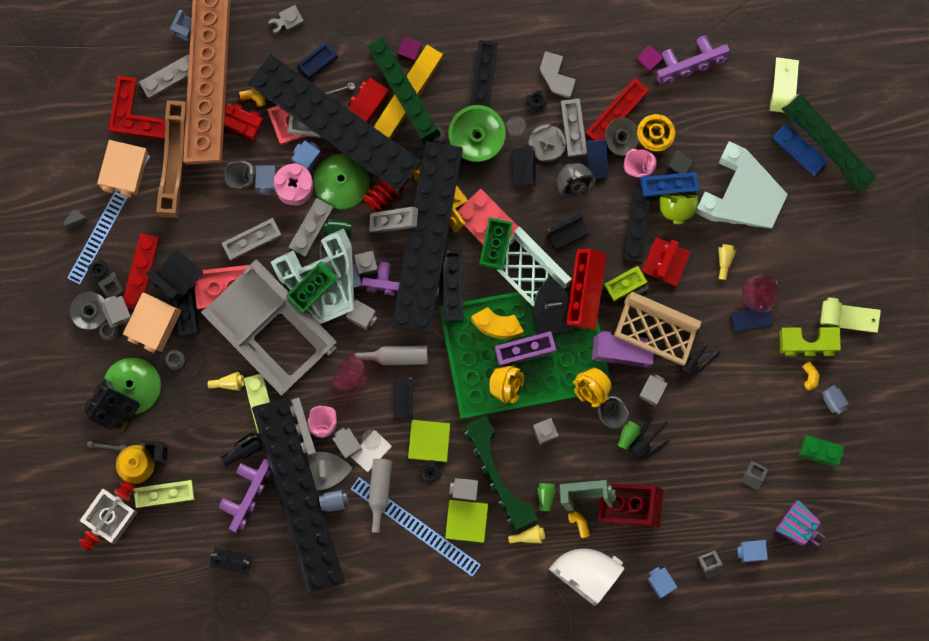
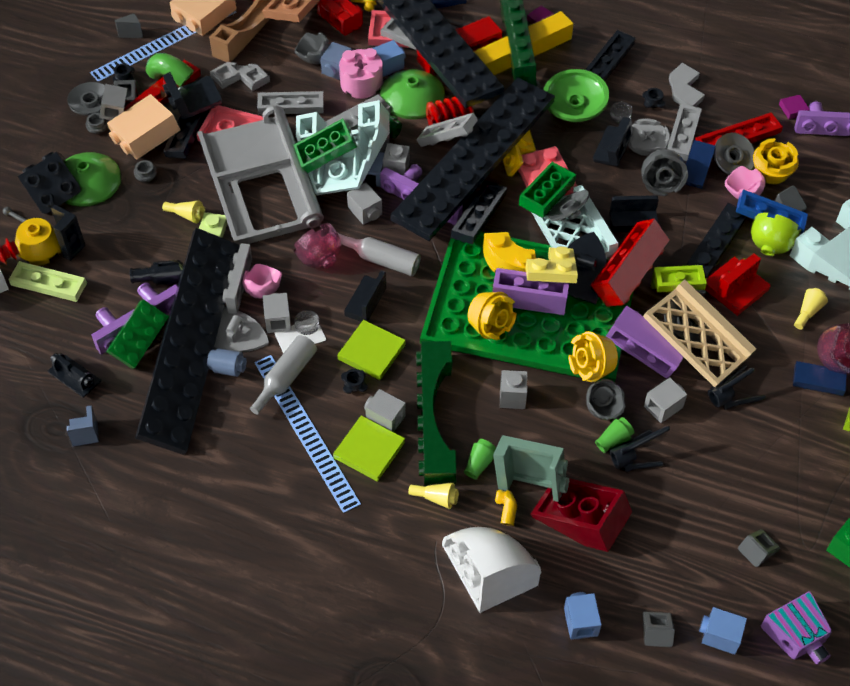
camera: 25 degrees right, 25 degrees down
(138, 255) = (164, 63): none -> bright green cylinder
(200, 221) = (229, 73): none -> light grey tile
(260, 511) = (137, 334): none -> green piece
(264, 599) = (84, 429): none -> sand blue panel
(520, 256) = (569, 206): none -> dark grey dish
(539, 330) = (559, 268): none -> light yellow plate

